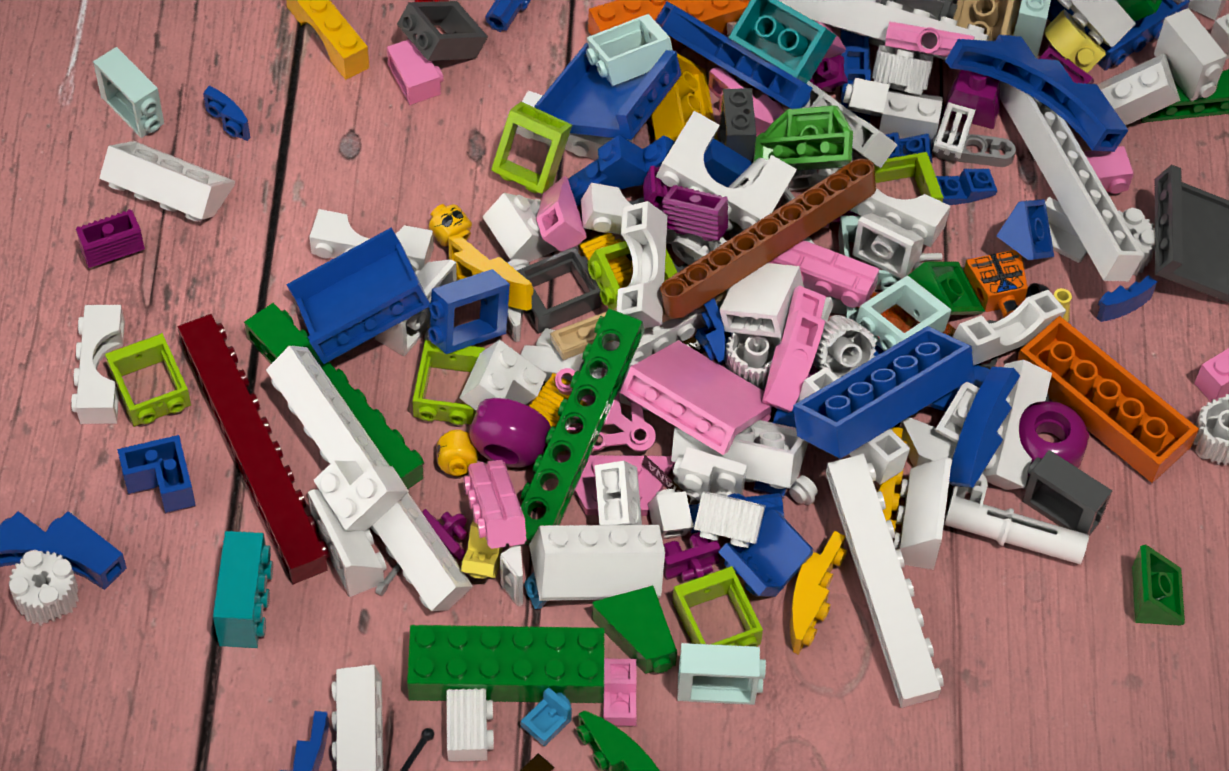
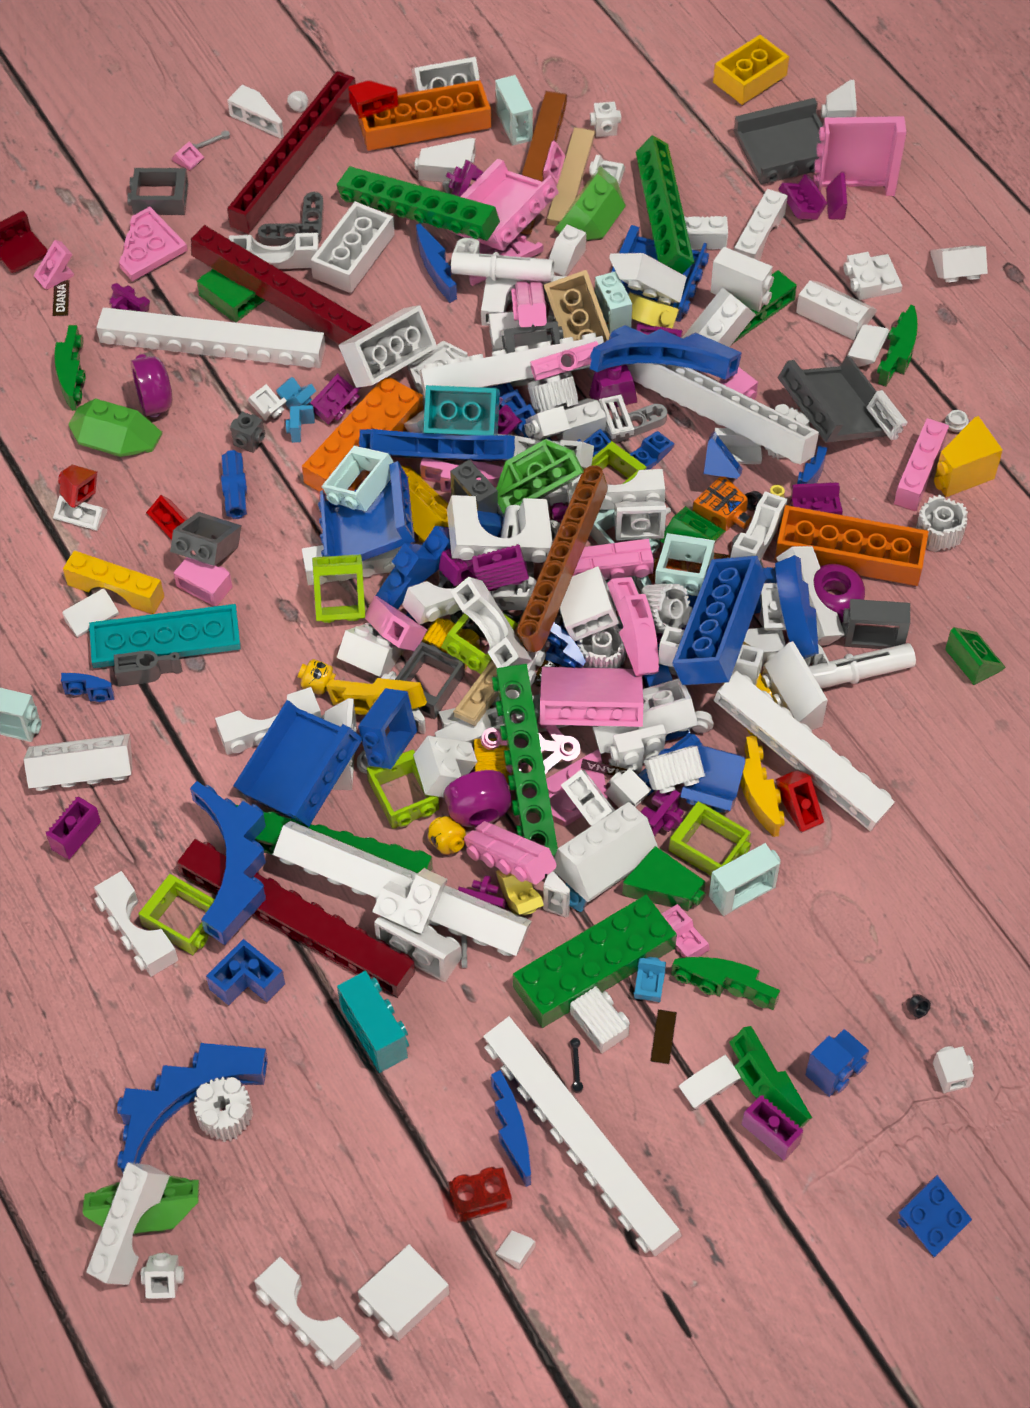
camera: 30 degrees left, 0 degrees up
(209, 386) = (240, 891): none -> blue arch
(285, 44) = (91, 609): none -> white slope
(293, 124) = (144, 667): none -> dark grey piece
(337, 105) = (181, 632): none -> teal plate
(845, 630) = (800, 799): none -> red slope
(1108, 330) = (817, 497): none -> magenta bracket

